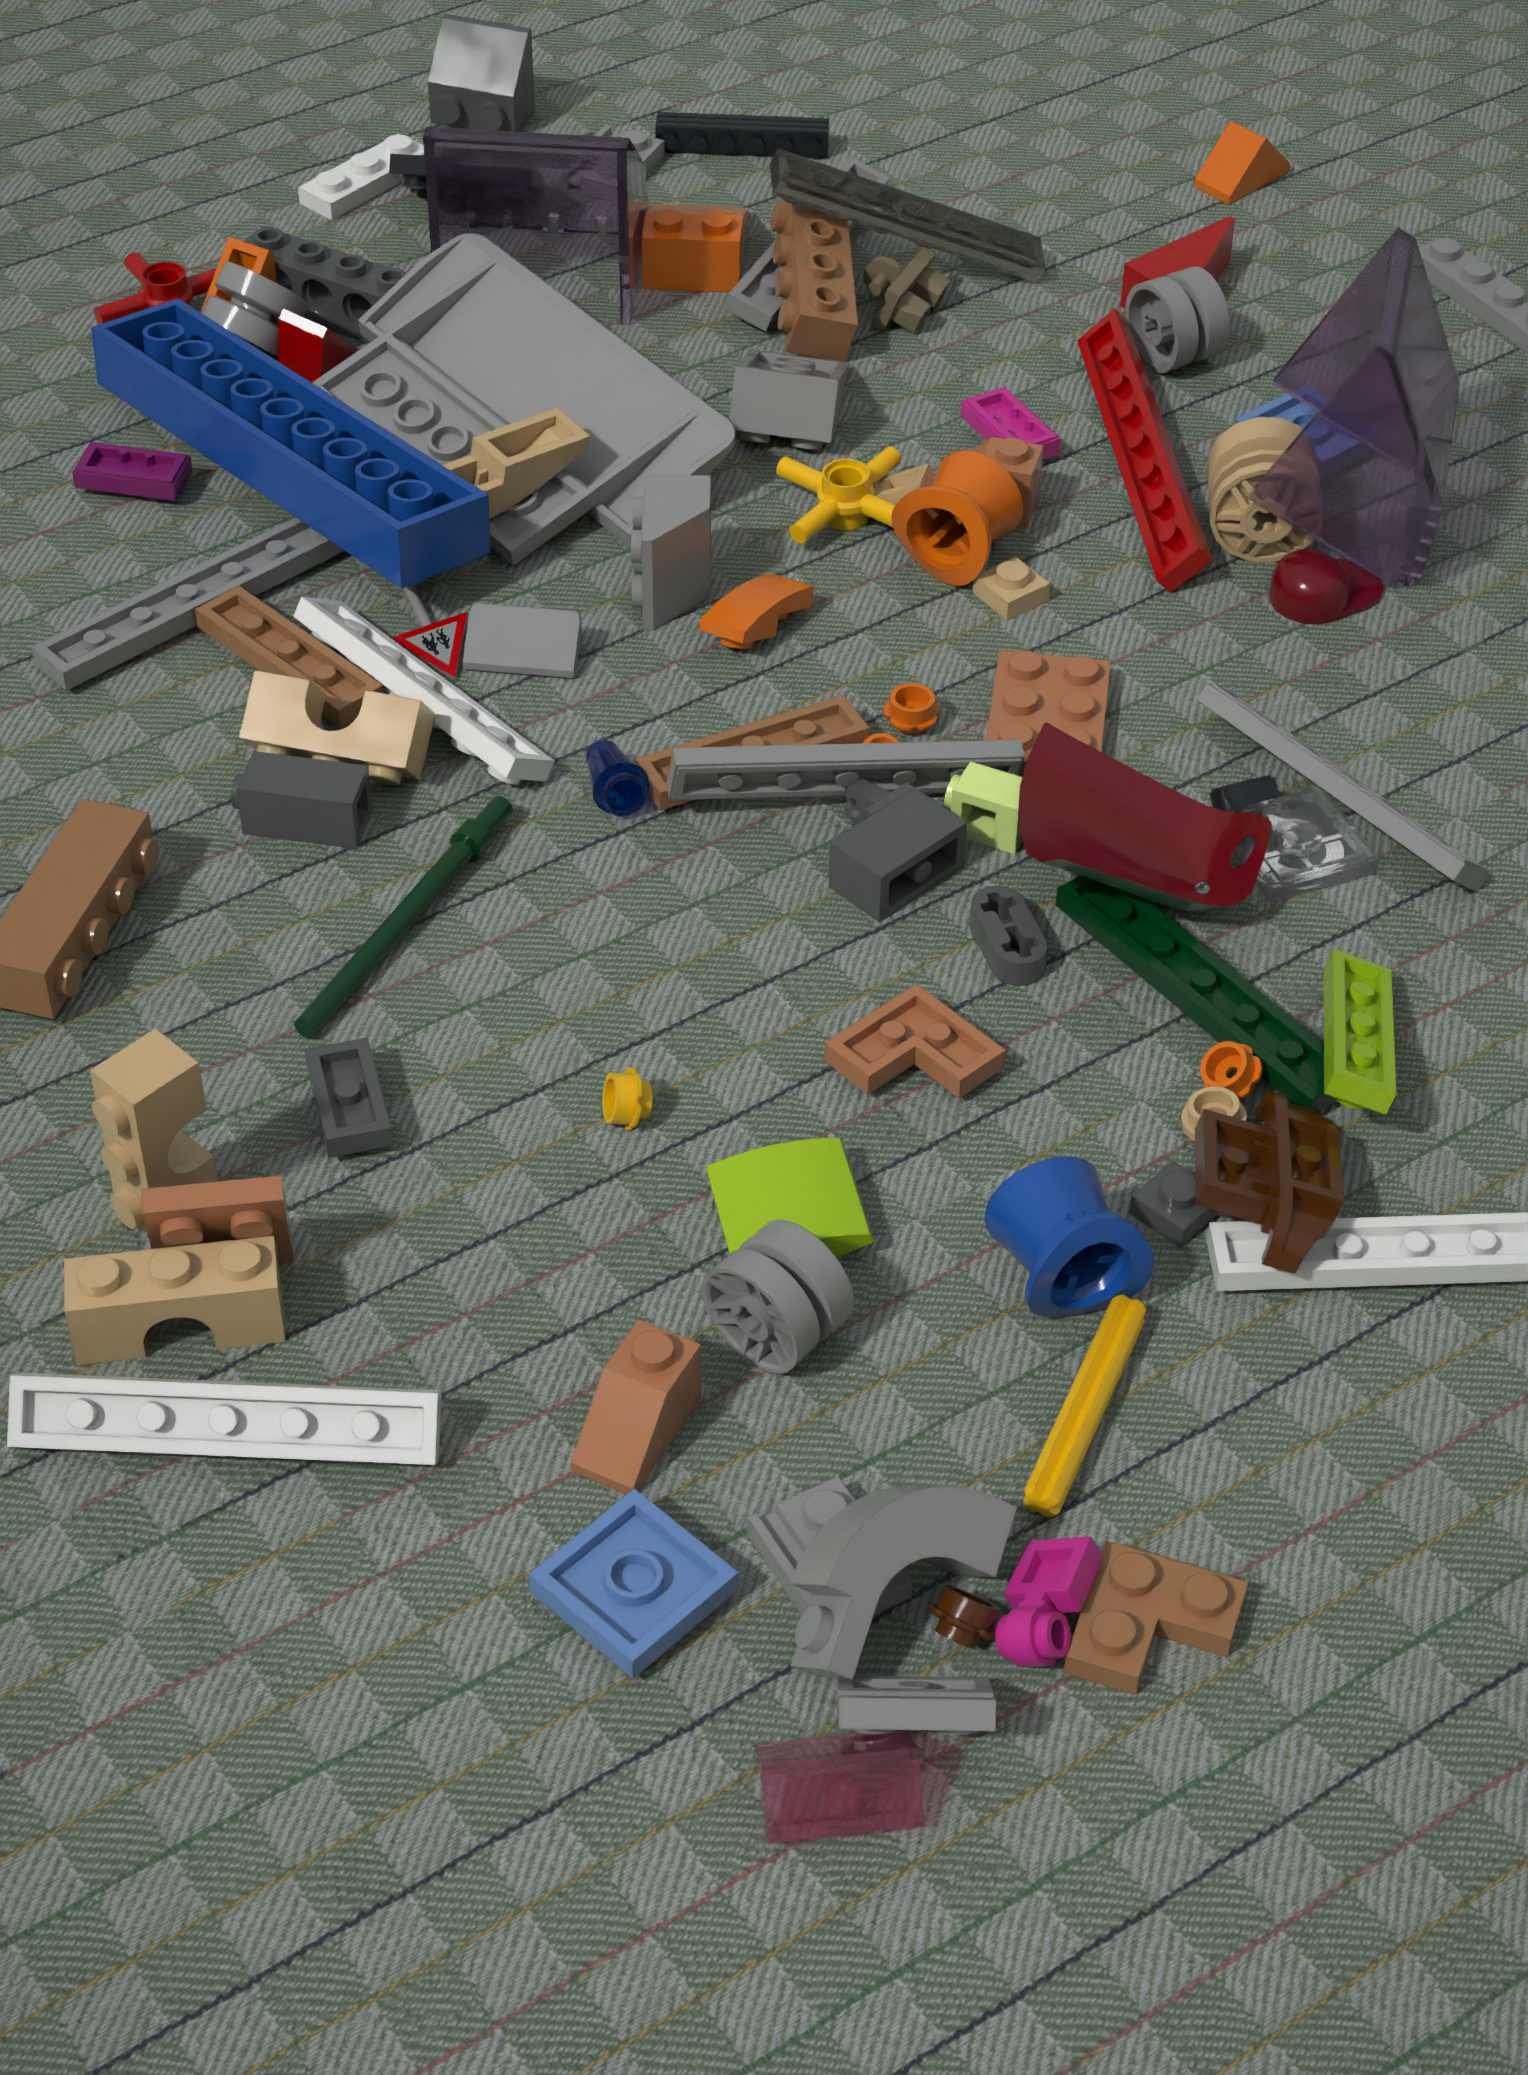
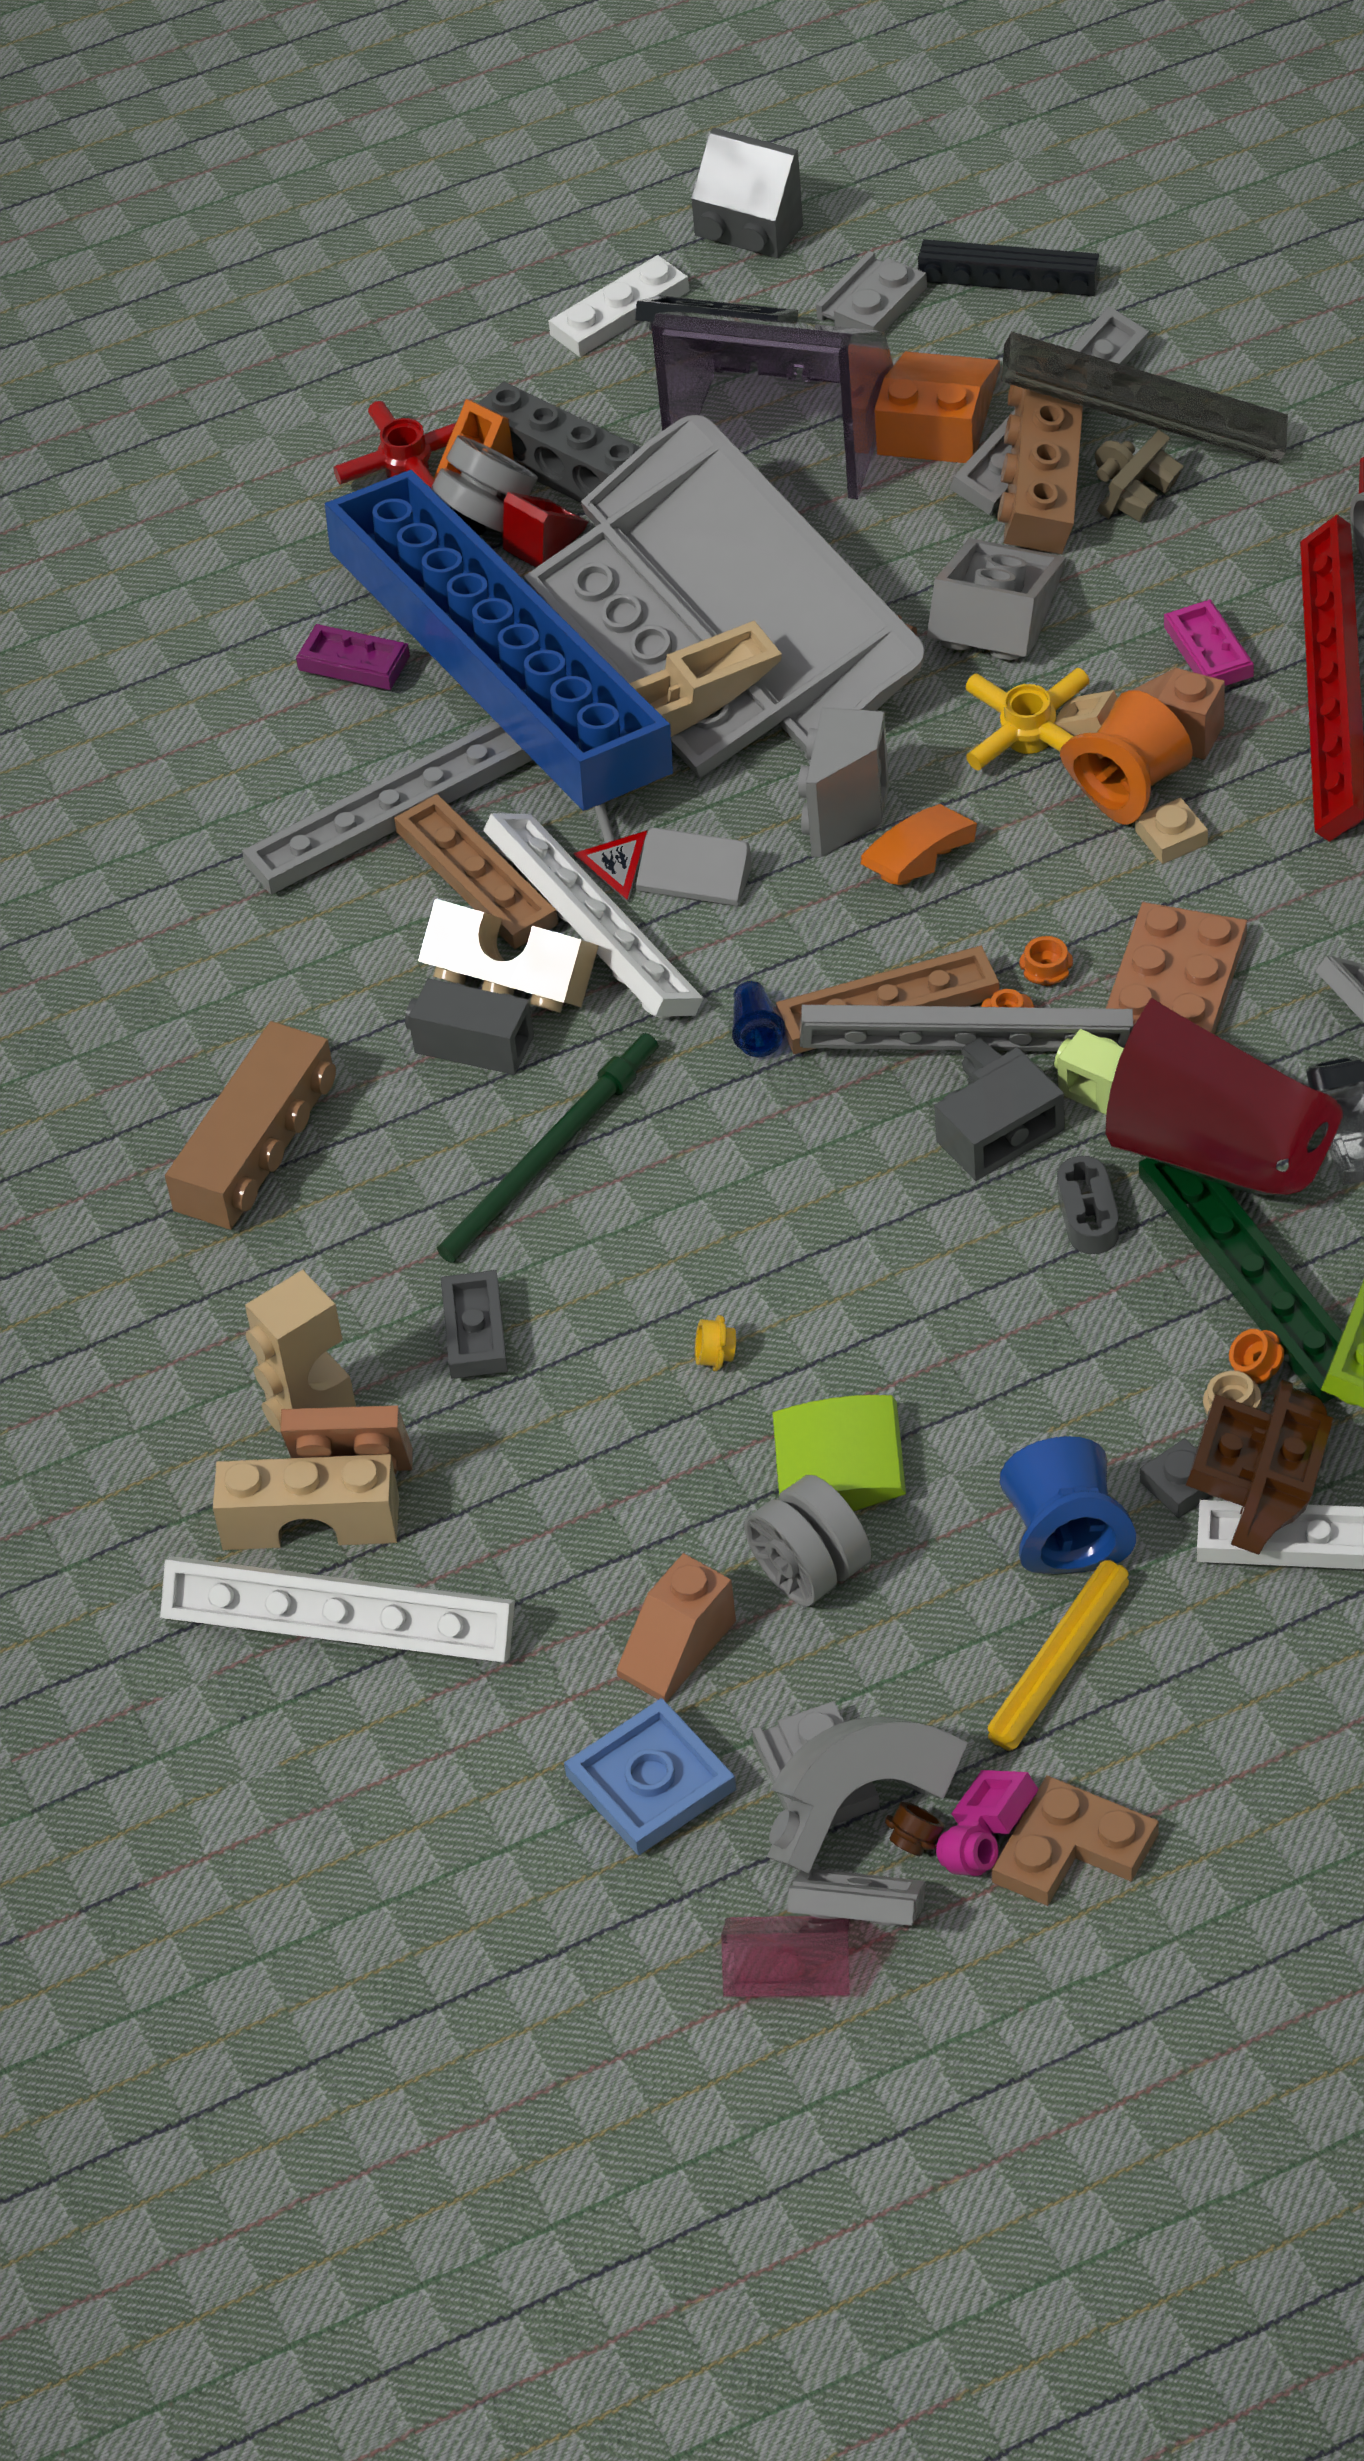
camera: 15 degrees right, 5 degrees up
(916, 1032) = (981, 1297): nougat plate -> none

